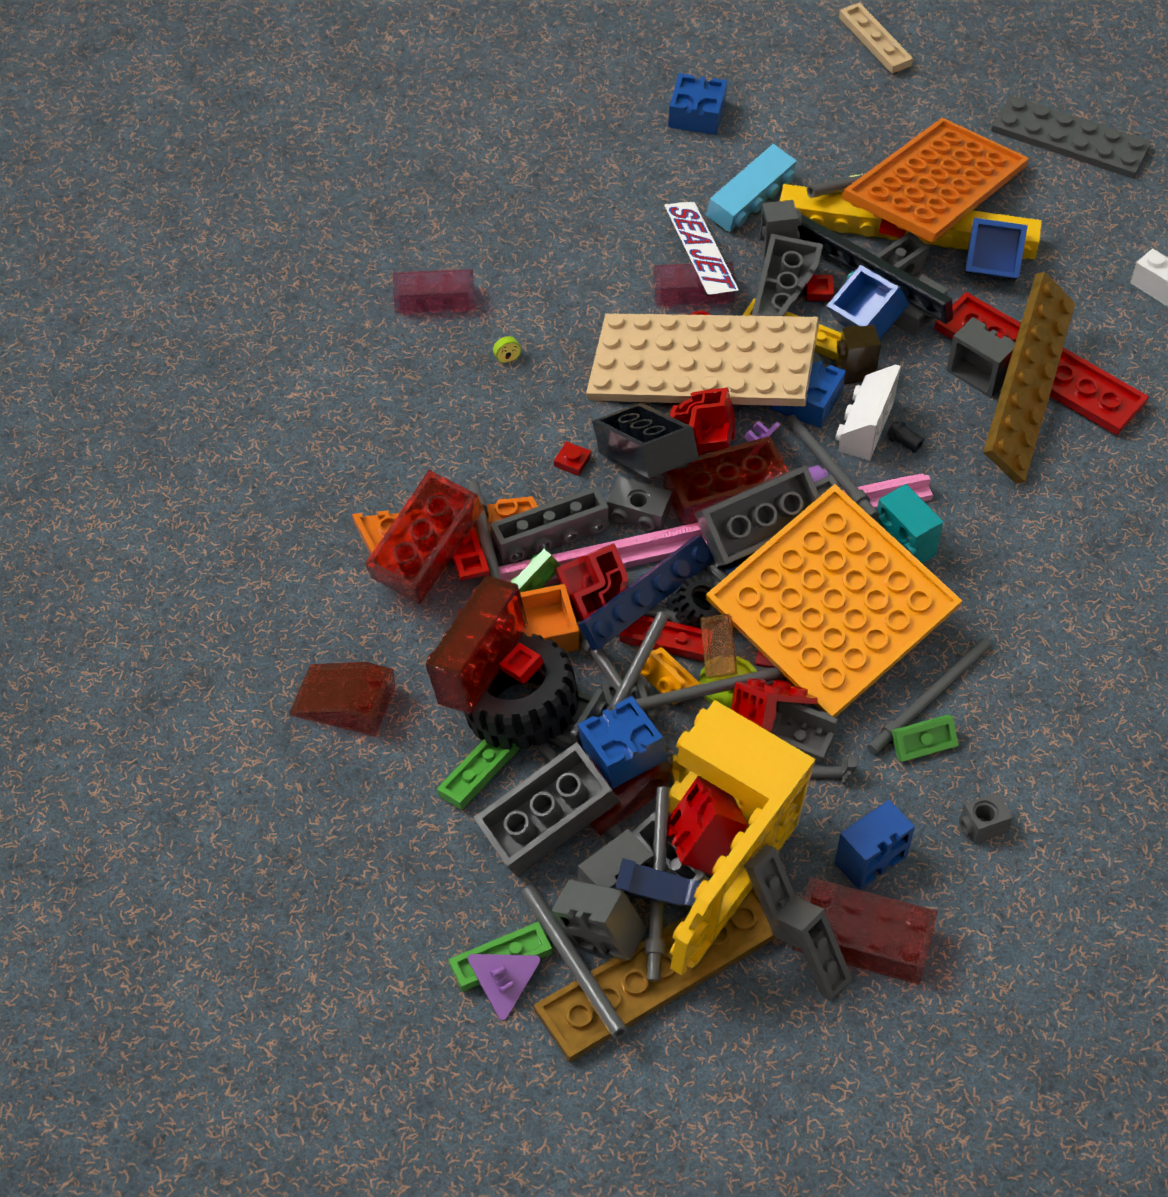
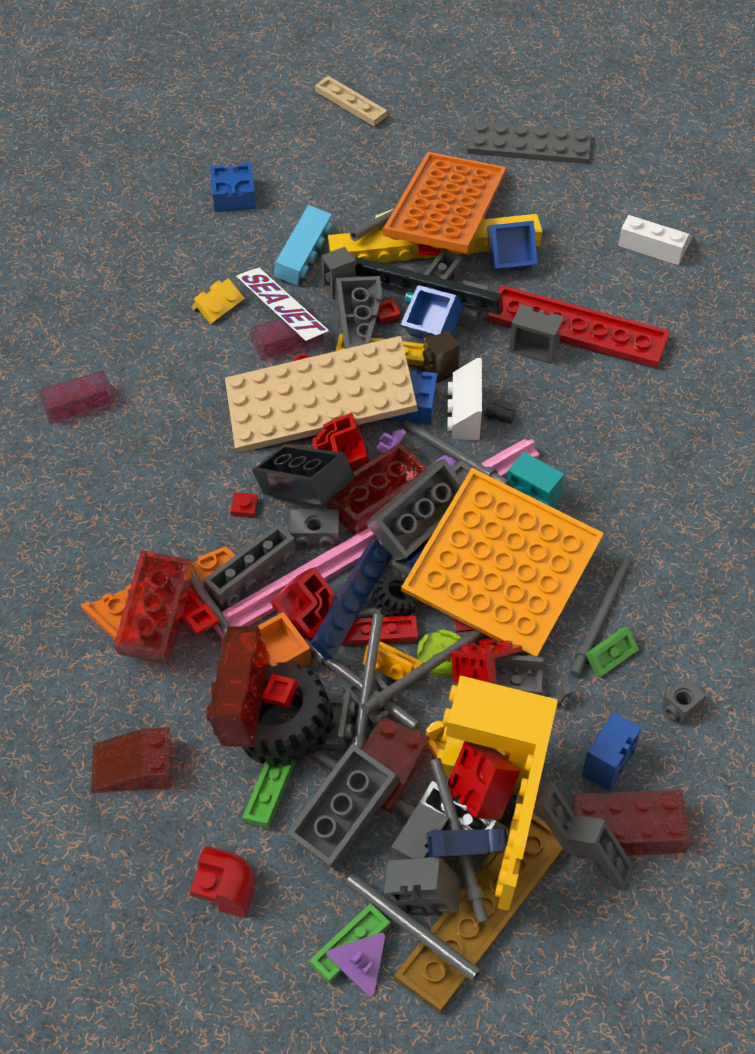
camera: 20 degrees left, 0 degrees up
(391, 847) = (225, 880): none -> red brick
(507, 349) = (156, 429): tile -> none
(537, 572) = (257, 608): bright green plate -> none
(622, 742) = (386, 730): blue piece -> none
(631, 227) = (218, 301): none -> yellow bracket
(718, 646) = (426, 626): clear orange tile -> none
(1029, 378) = (580, 341): pearl gold plate -> none

